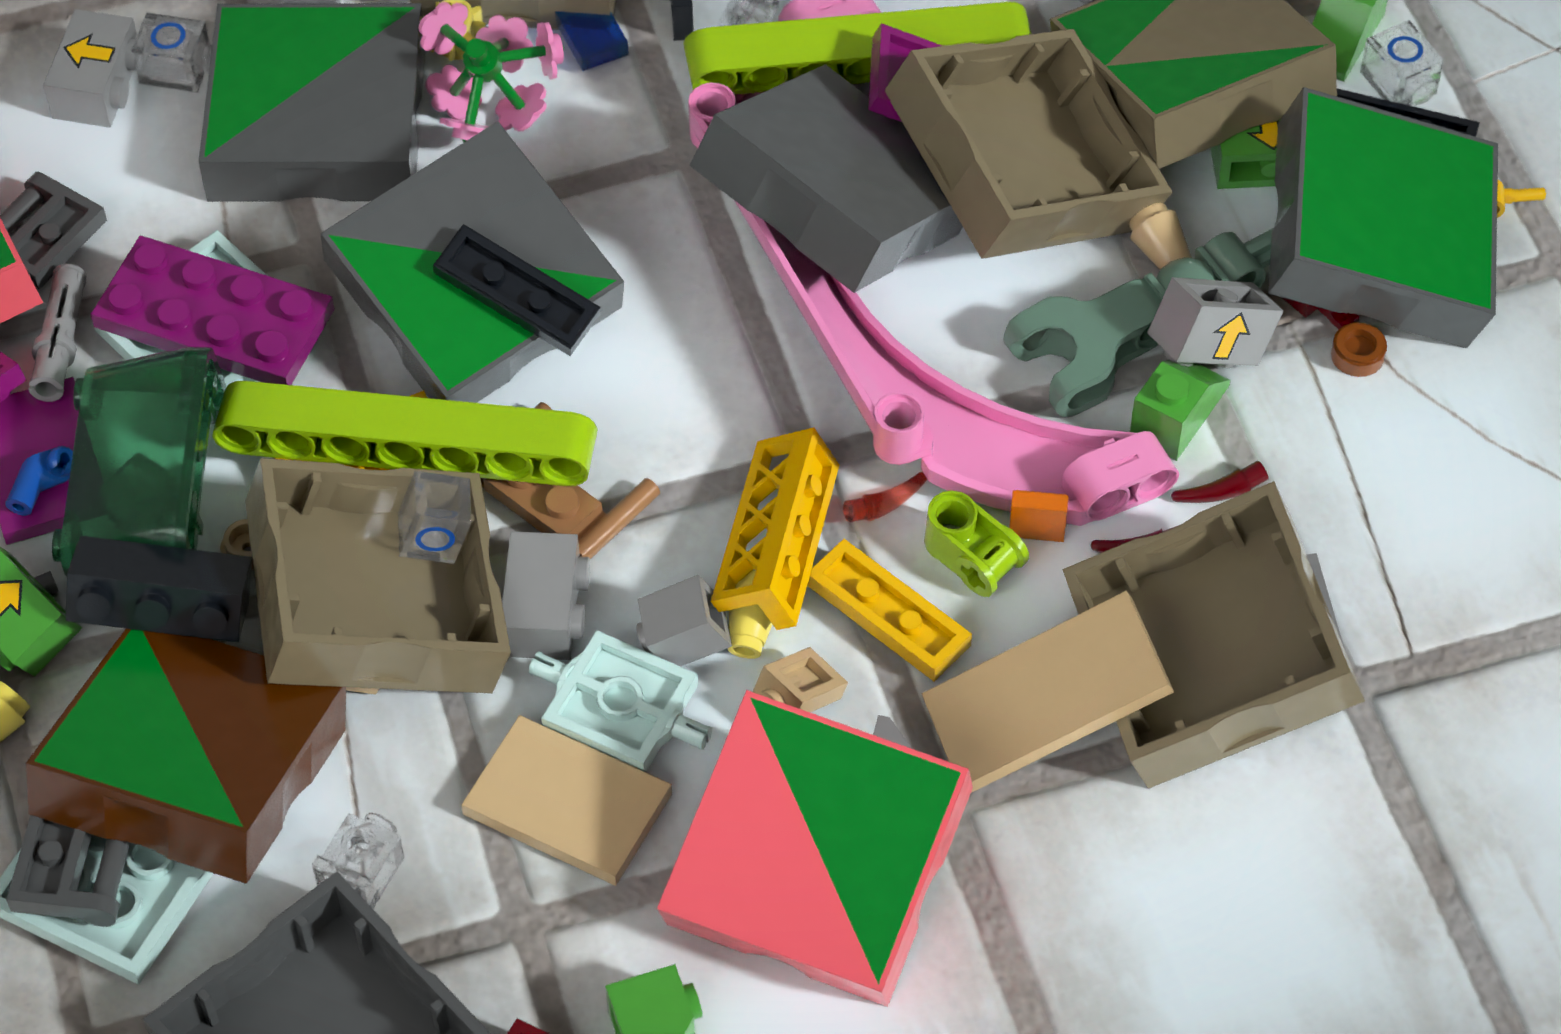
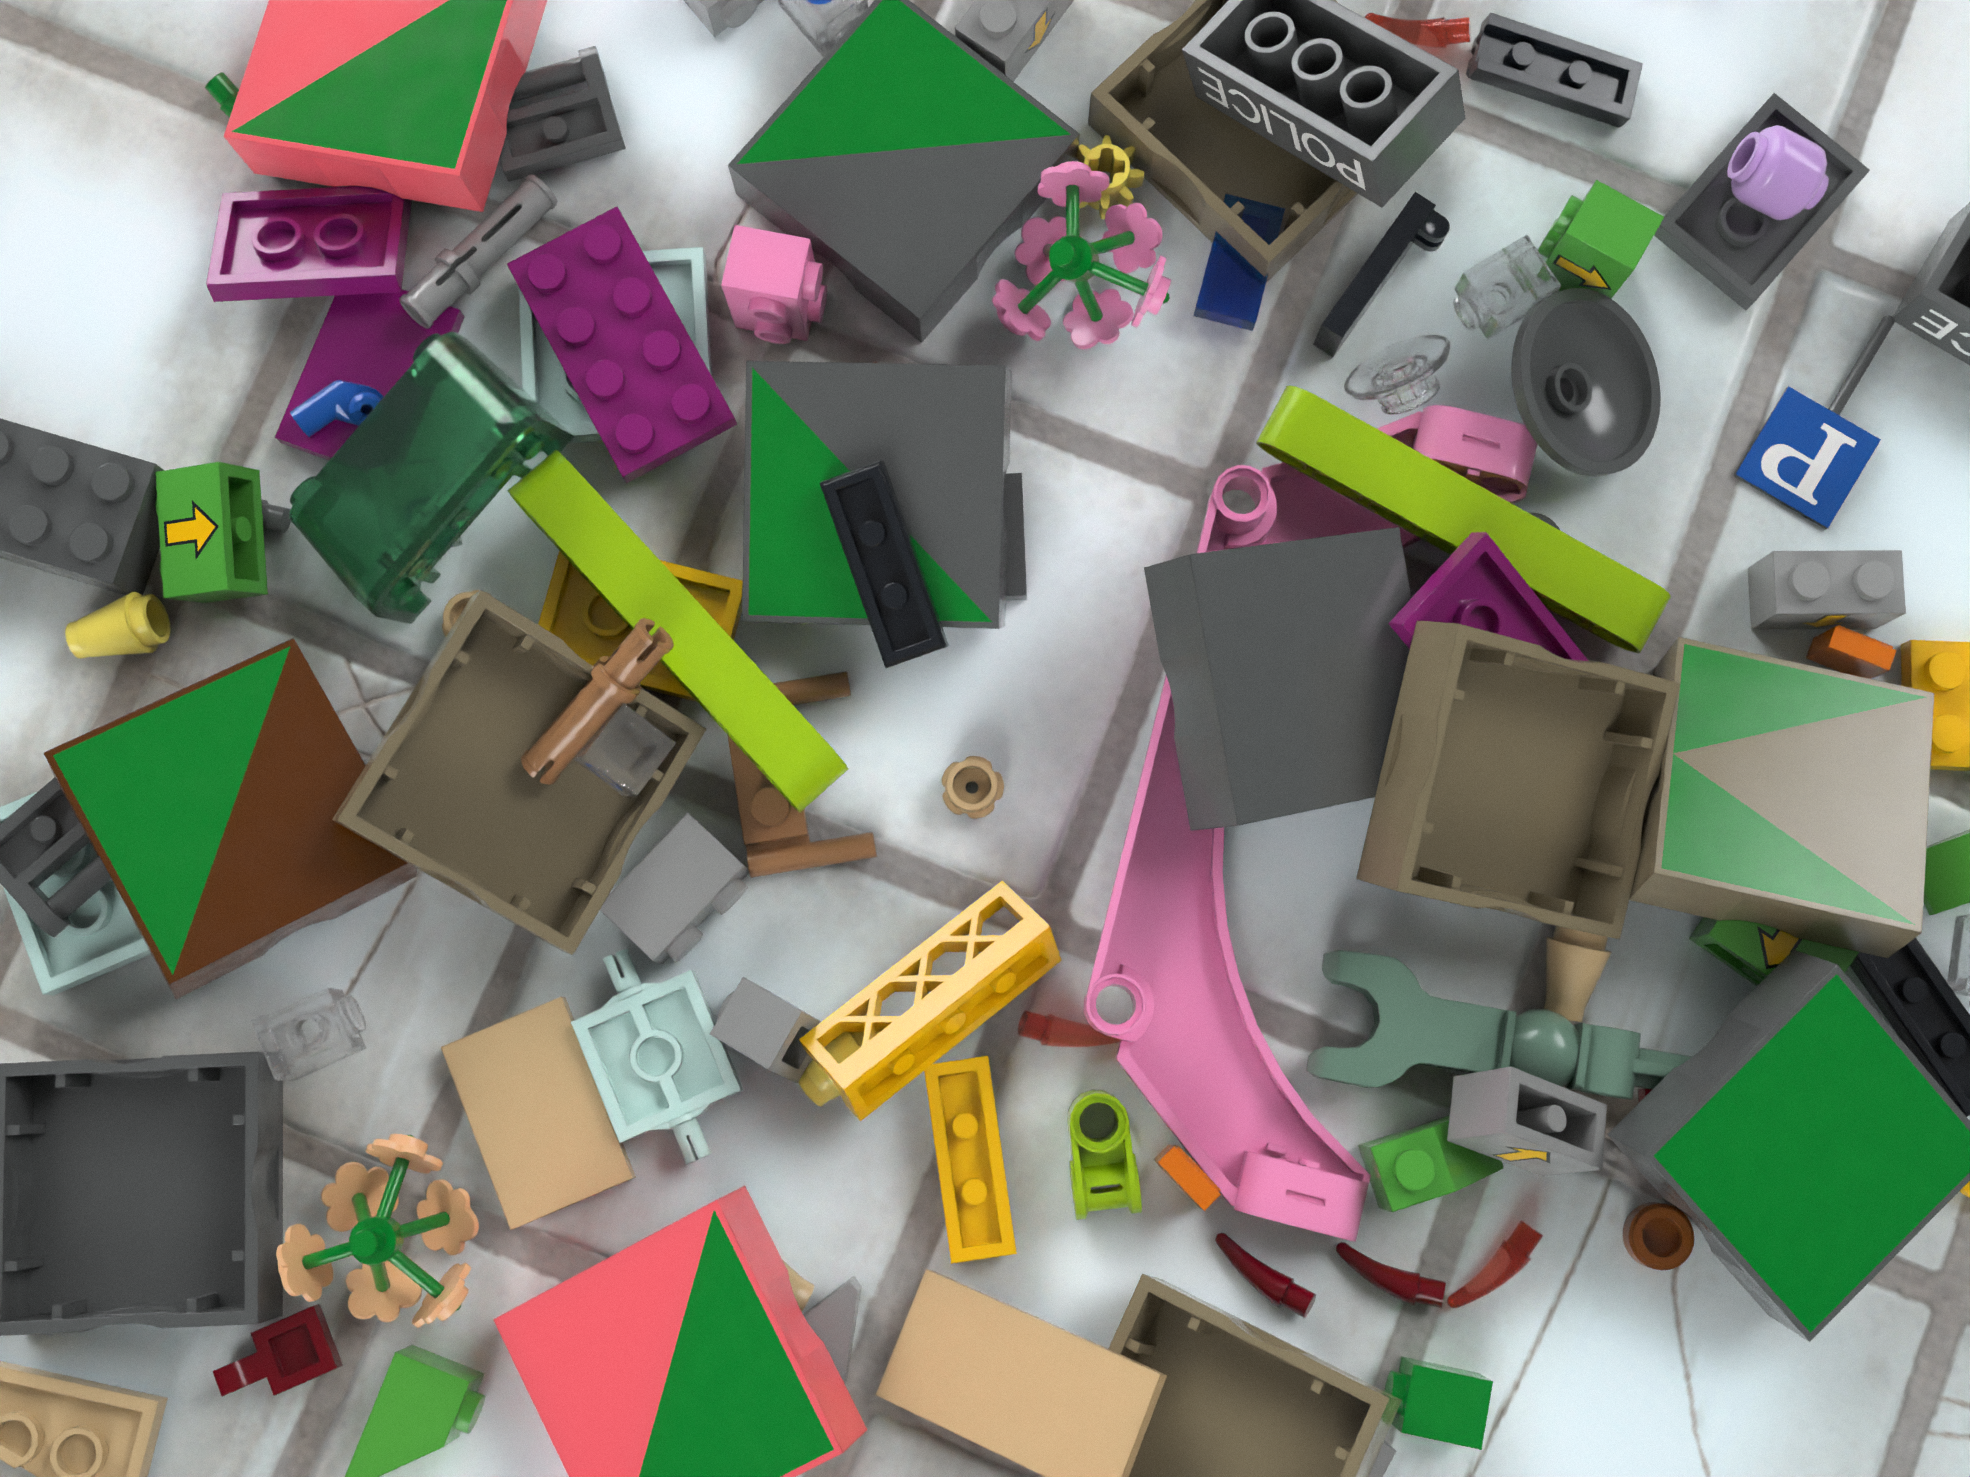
camera: 40 degrees right, 25 degrees up
(158, 588) = (320, 634): black brick -> none
(289, 207) = (773, 284): none -> bright pink brick
(394, 486) = (612, 683): none -> medium nougat pin
(533, 909) = (387, 1275): none -> light nougat plant
(686, 396) = (975, 770): none -> tan plate
(801, 681) = (817, 1175): tan bracket -> none
(1283, 431) = (1504, 1265): none -> clear red helmet
(1326, 518) = (1440, 1402): none -> green brick

